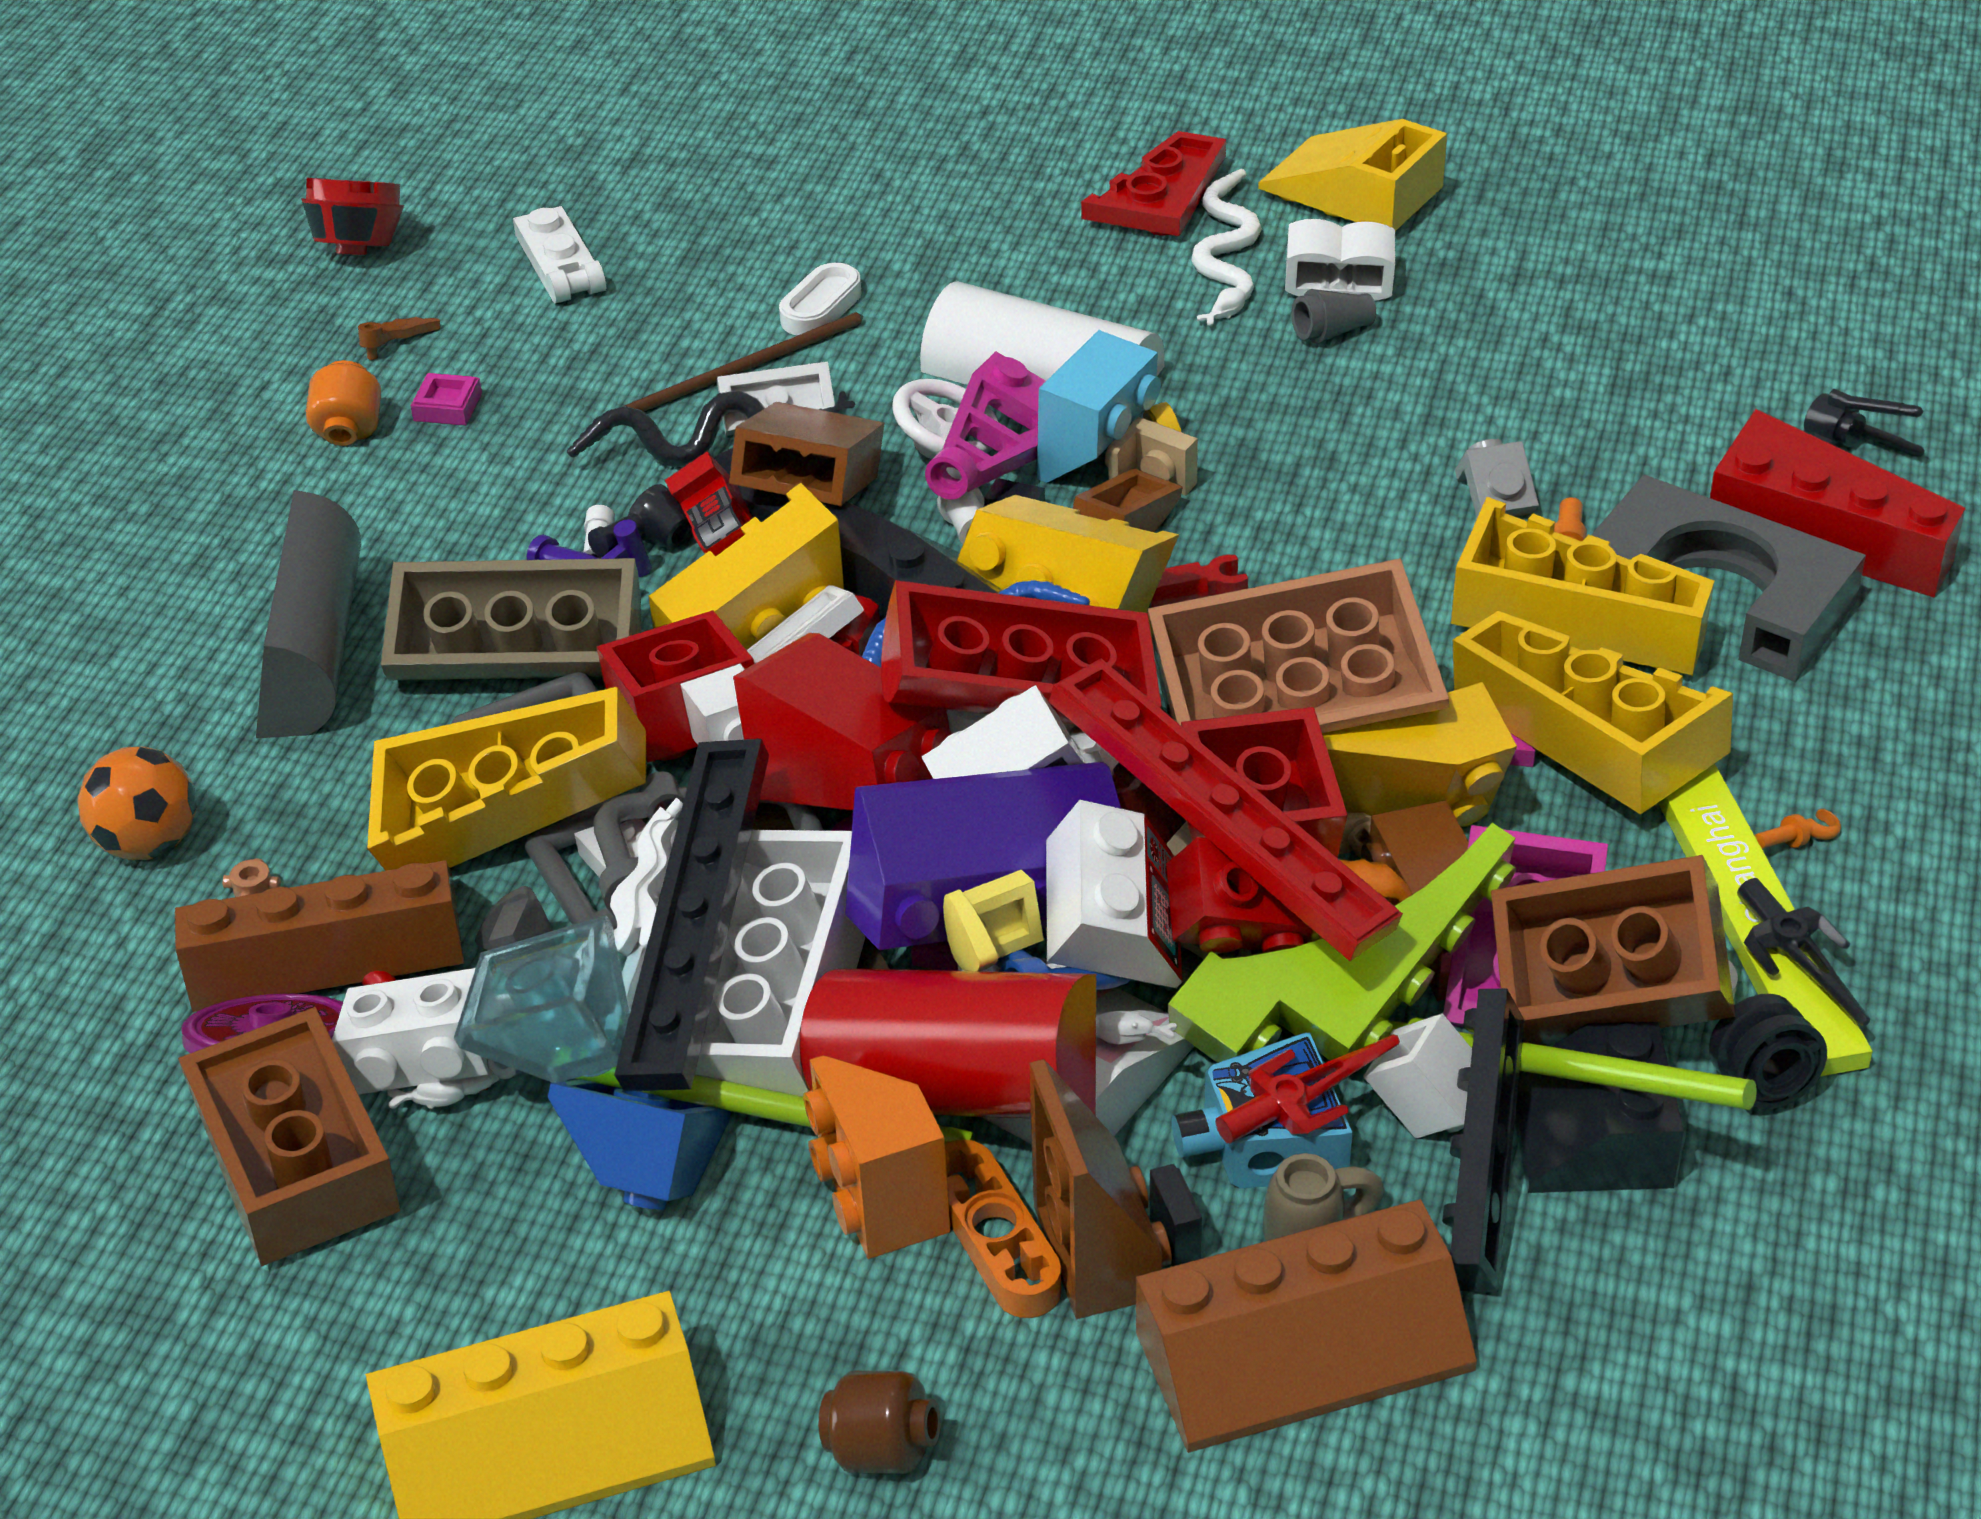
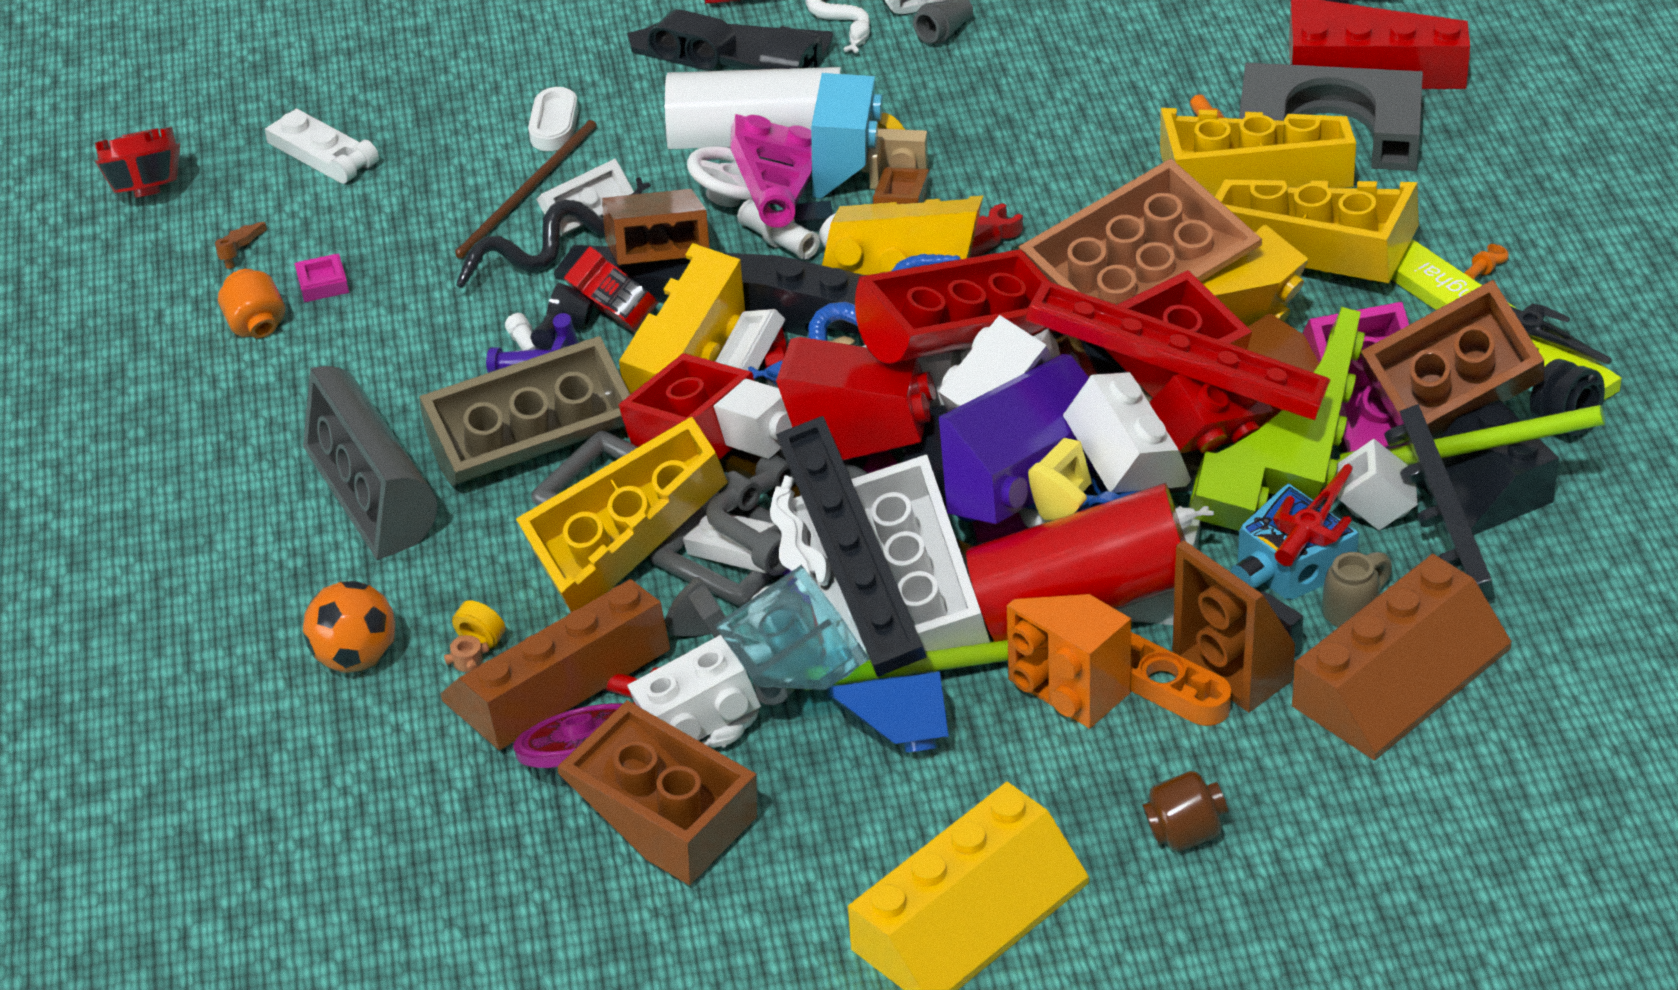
camera: 25 degrees left, 0 degrees up
(279, 853) = (479, 621): none -> yellow tile
(1079, 278) = (709, 41): none -> black panel
(1498, 473) = (1140, 96): light grey bracket -> none

